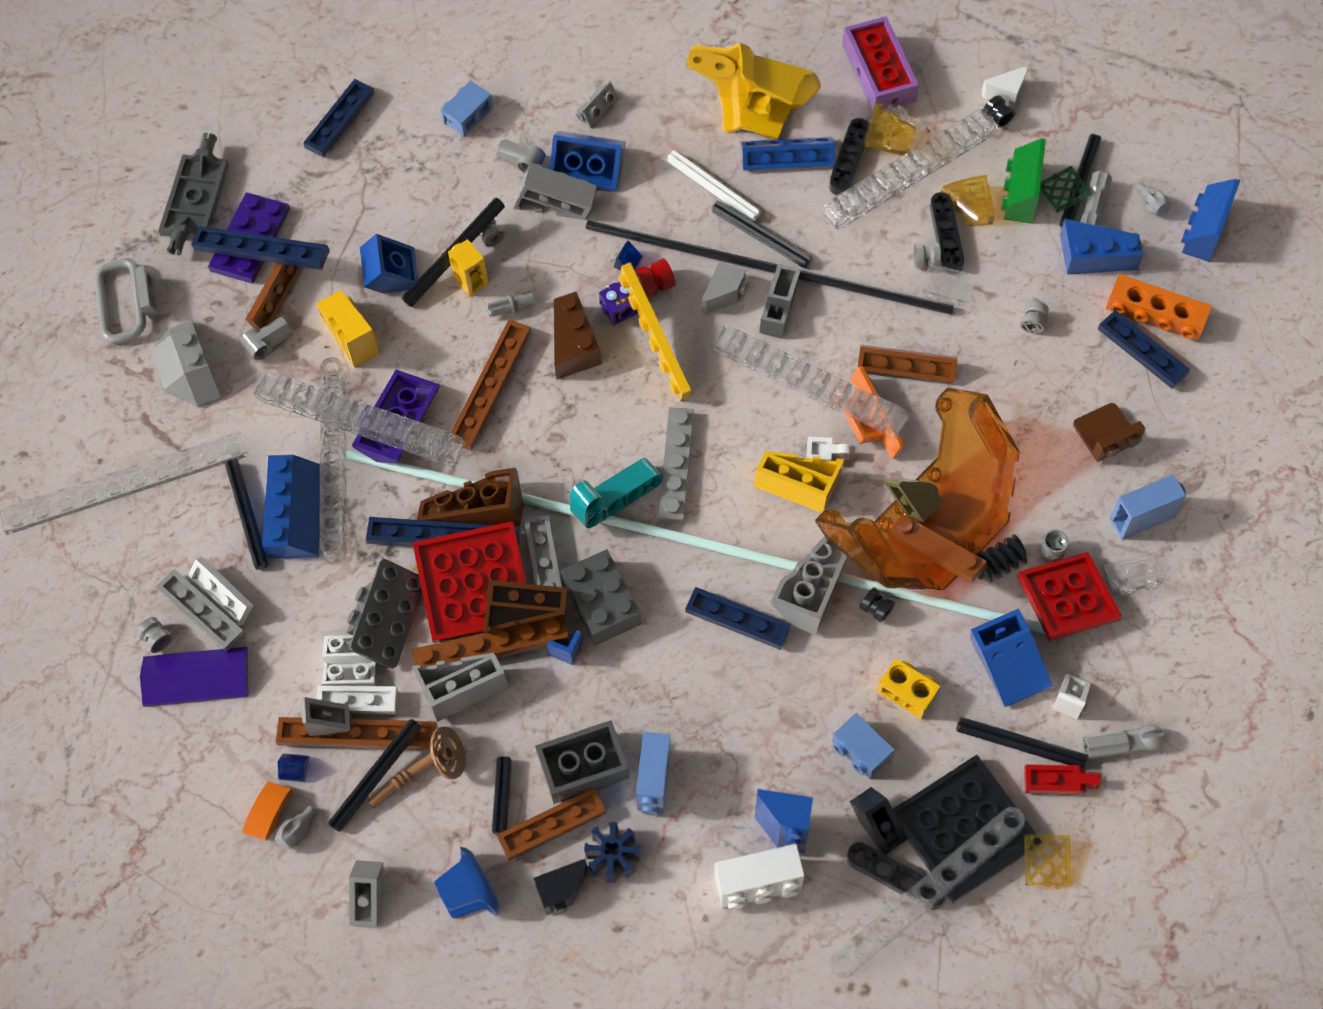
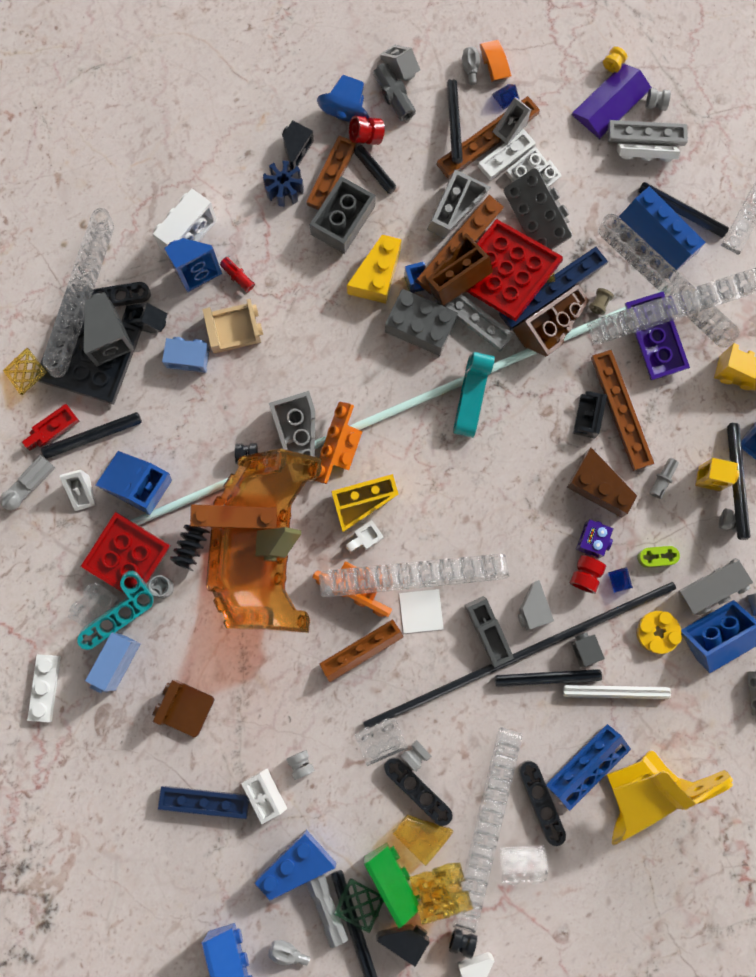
camera: 135 degrees right, 15 degrees up
(149, 710) = (615, 58): none -> yellow wheel
(404, 862) = (394, 92): none -> dark grey piece
(412, 488) = (601, 301): none -> dark tan bush
(438, 756) = (427, 158): medium nougat dish -> none
(476, 833) = (366, 130): none -> red wheel
(522, 400) = (590, 414): none -> black hinge
(577, 254) = (658, 551): none -> lime beam
(597, 679) = (376, 272): none -> yellow wedge
(630, 190) = (664, 621): none -> yellow plate
(653, 773) = (295, 237): medium blue brick -> none
(658, 340) = (555, 529): yellow plate -> none
(676, 465) = (454, 452): light grey plate -> none
(709, 227) = (587, 649): none -> dark grey brick
(738, 618) = (328, 376): dark blue plate -> none
(742, 791) = (237, 274): none -> red axle
(778, 546) = (340, 442): none -> orange bracket
(790, 741) = (233, 327): none -> tan panel
(828, 356) = (421, 611): none -> white sticker
(880, 63) = (587, 910): brick -> none
(888, 132) = (528, 845): clear yellow slope -> none
(904, 693) = (185, 407): yellow brick -> none
(932, 814) = (104, 331): none -> dark grey slope
(990, 145) = (441, 893): none -> clear yellow brick
(1055, 148) = (406, 942): none -> black slope
(1085, 315) = (264, 796): none -> white hinge
(1114, 542) = (113, 614): none -> teal beam
(1170, 305) = (183, 864): orange brick -> none
(1231, 544) = (44, 688): none -> white plate

